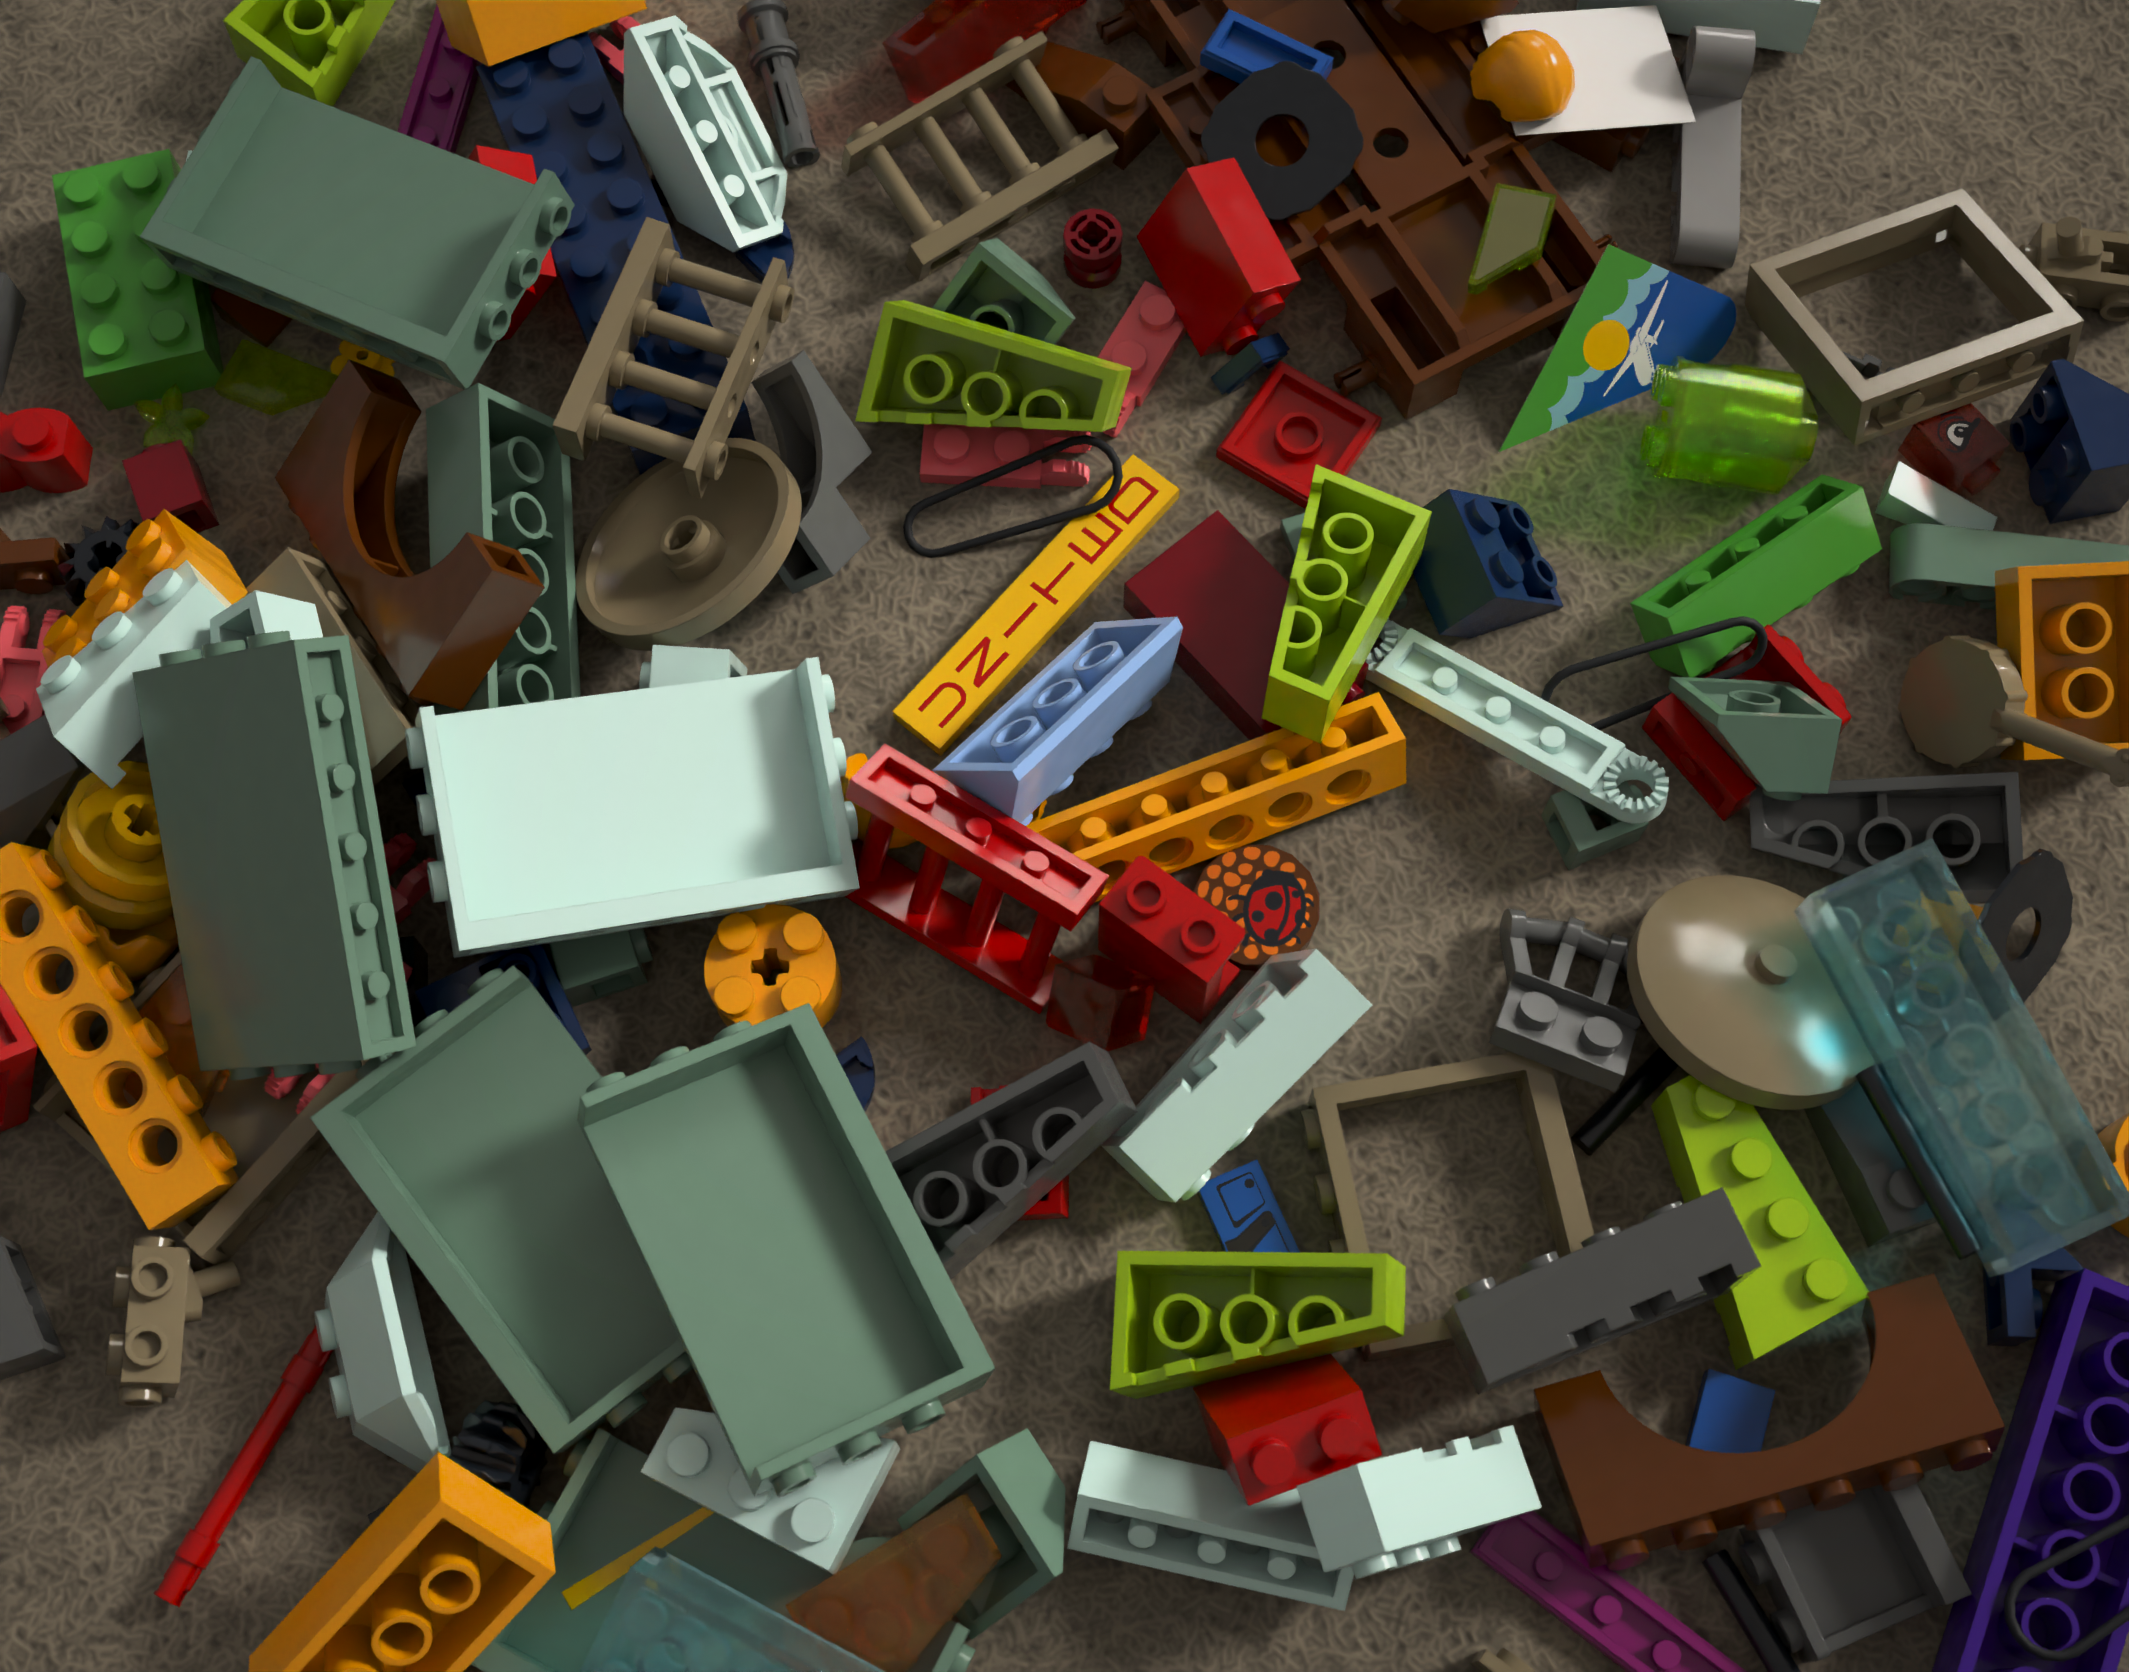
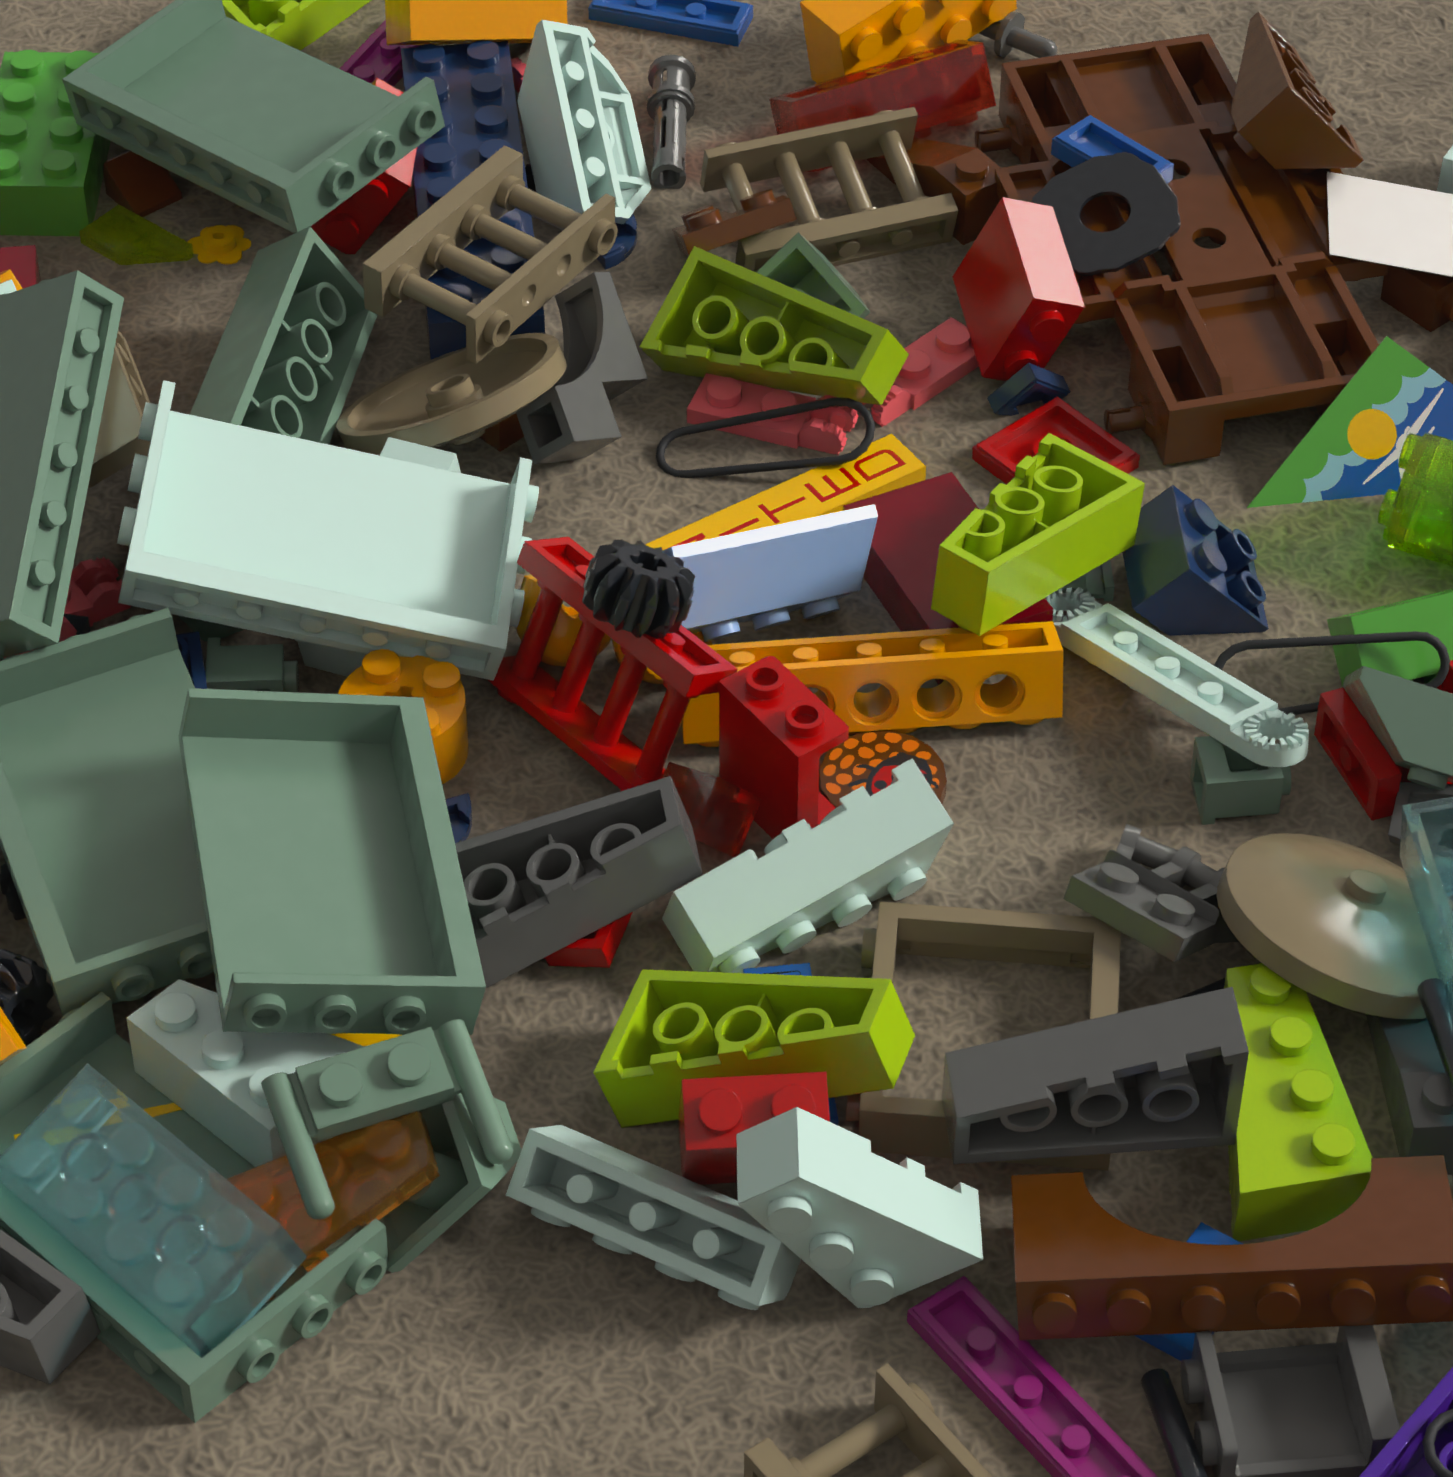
camera: 15 degrees right, 25 degrees down
(170, 420) = (36, 235): clear neon green plant -> none
(431, 626) = (163, 311): reddish brown arch -> none
(884, 242) = (710, 228): none -> reddish brown plate
(916, 1502) = (374, 1087): none -> sand green plate
(993, 829) = (638, 589): none -> black gear
(1084, 260) = (909, 275): dark red wheel -> none
(1512, 234) = (1297, 314): olive tile -> none
(1524, 76) = (1351, 208): light orange hair -> none

